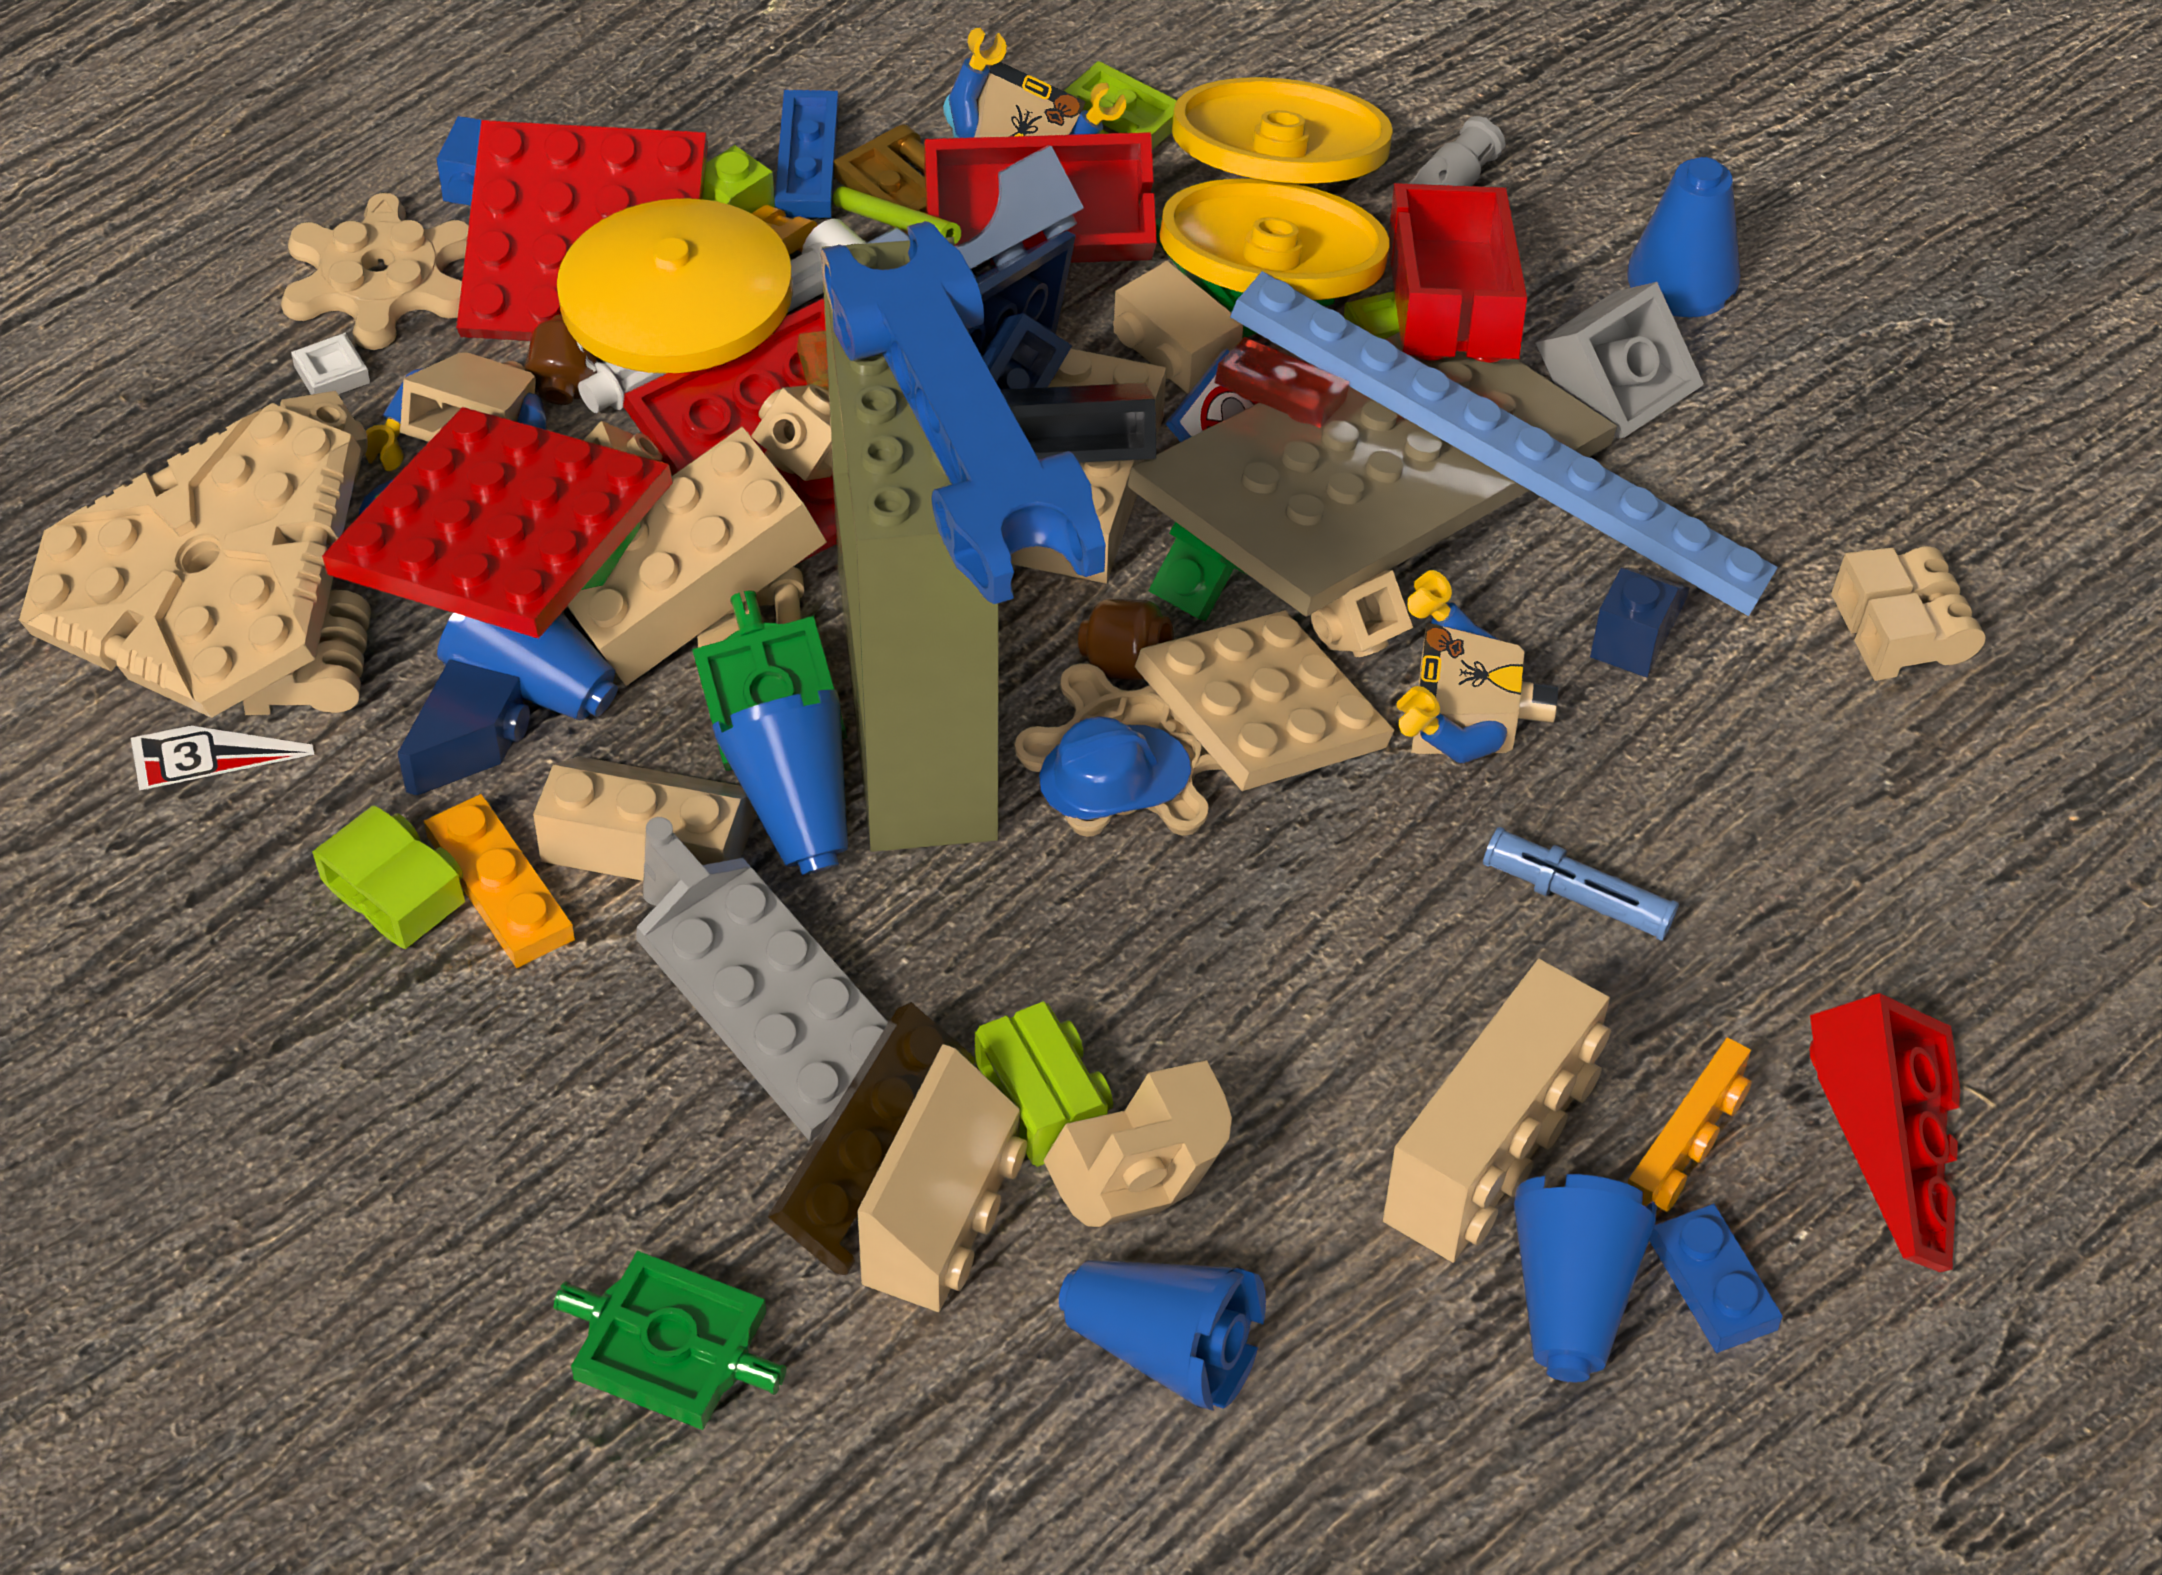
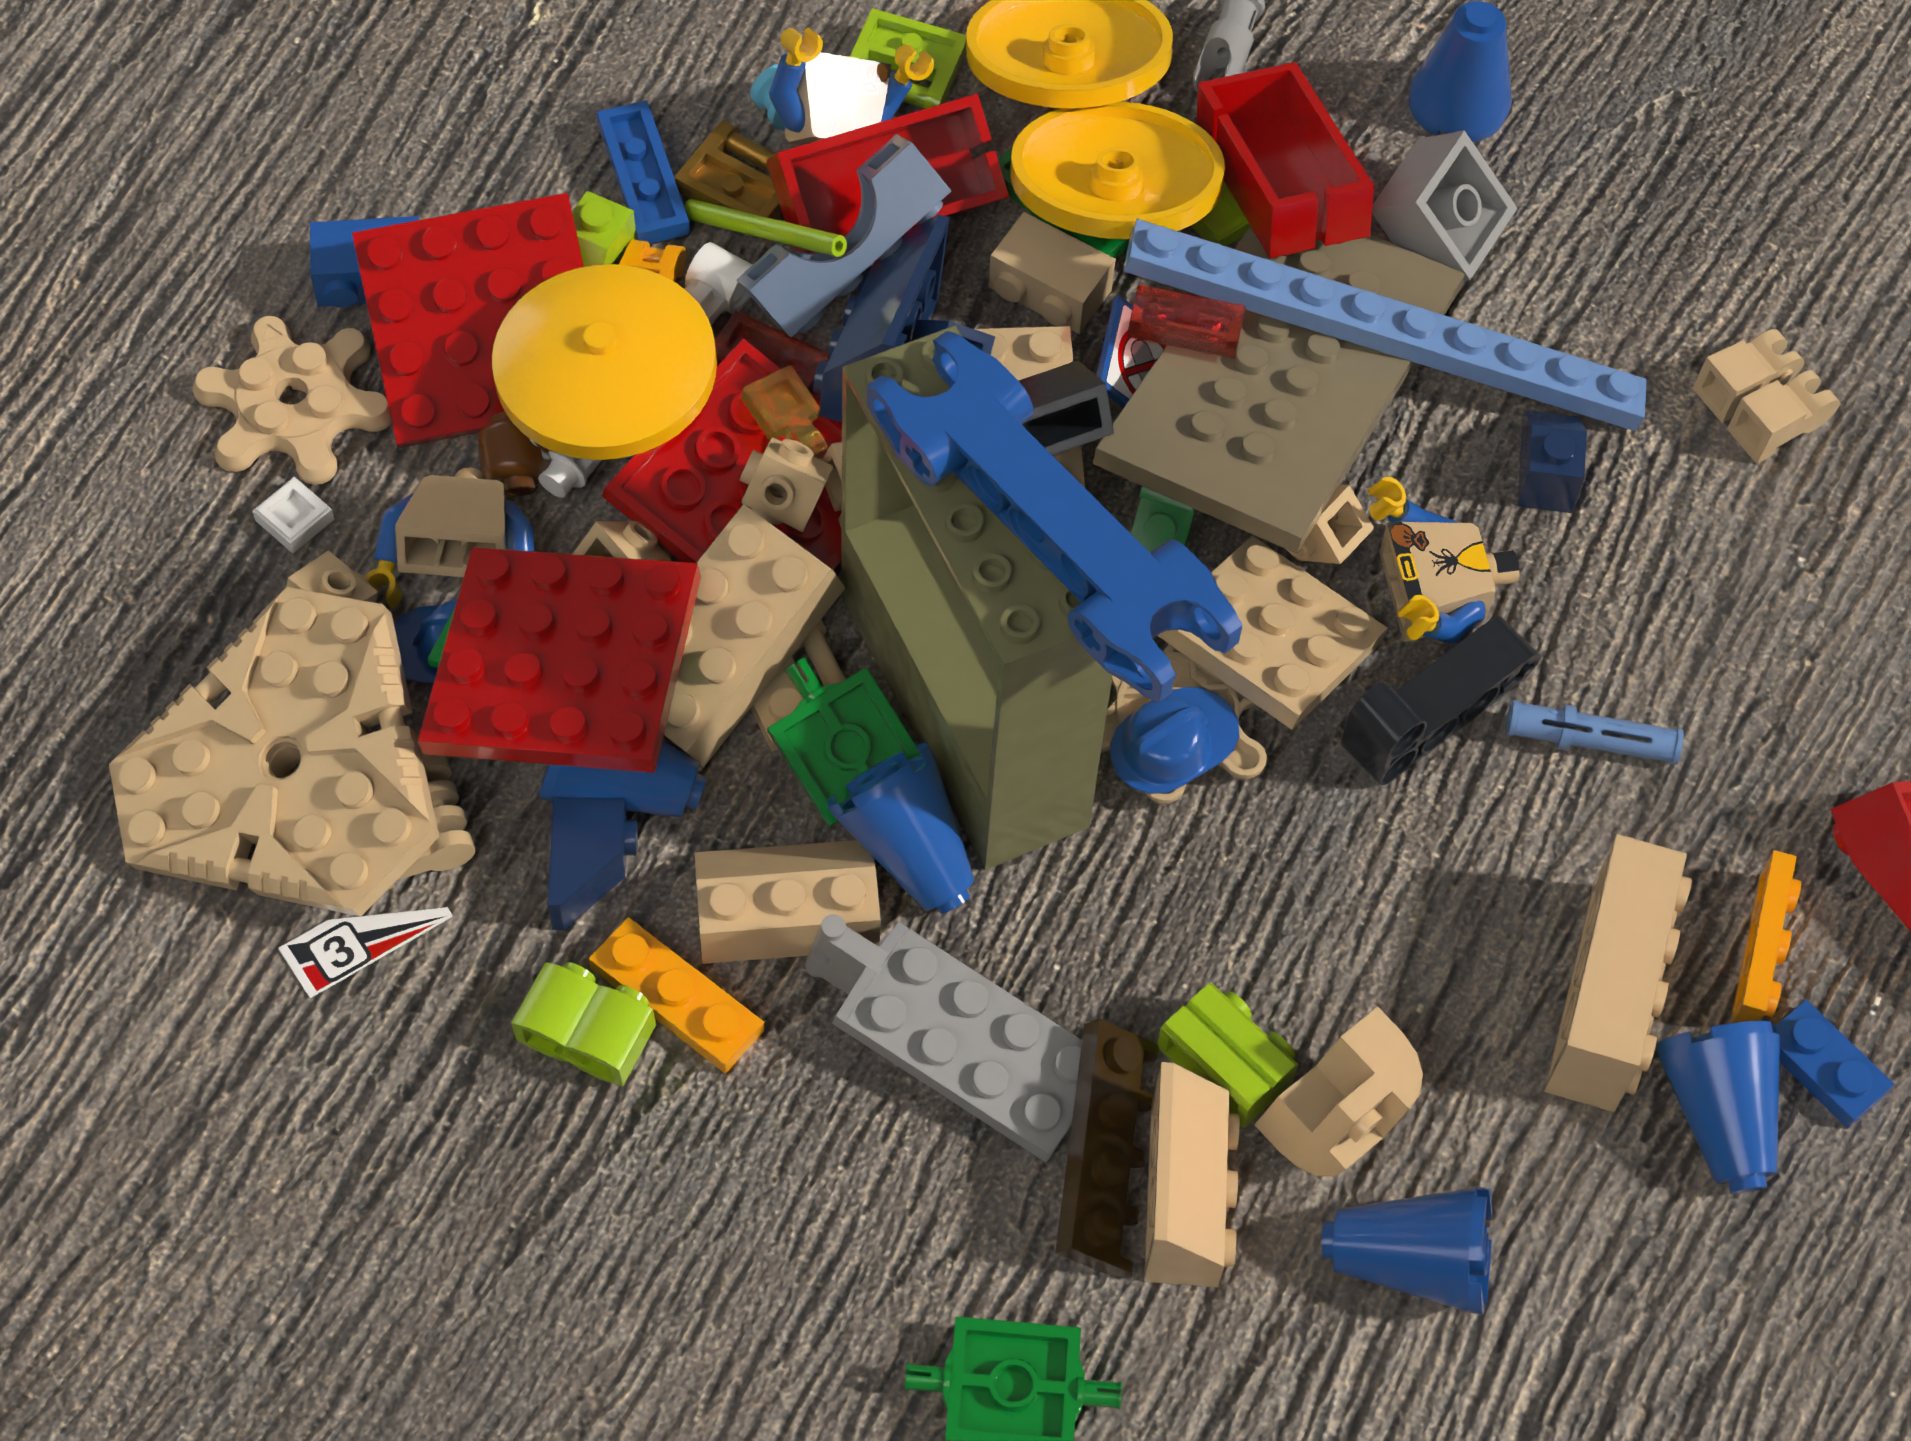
camera: 20 degrees left, 10 degrees up
(1413, 812) = (1399, 727): none -> black beam

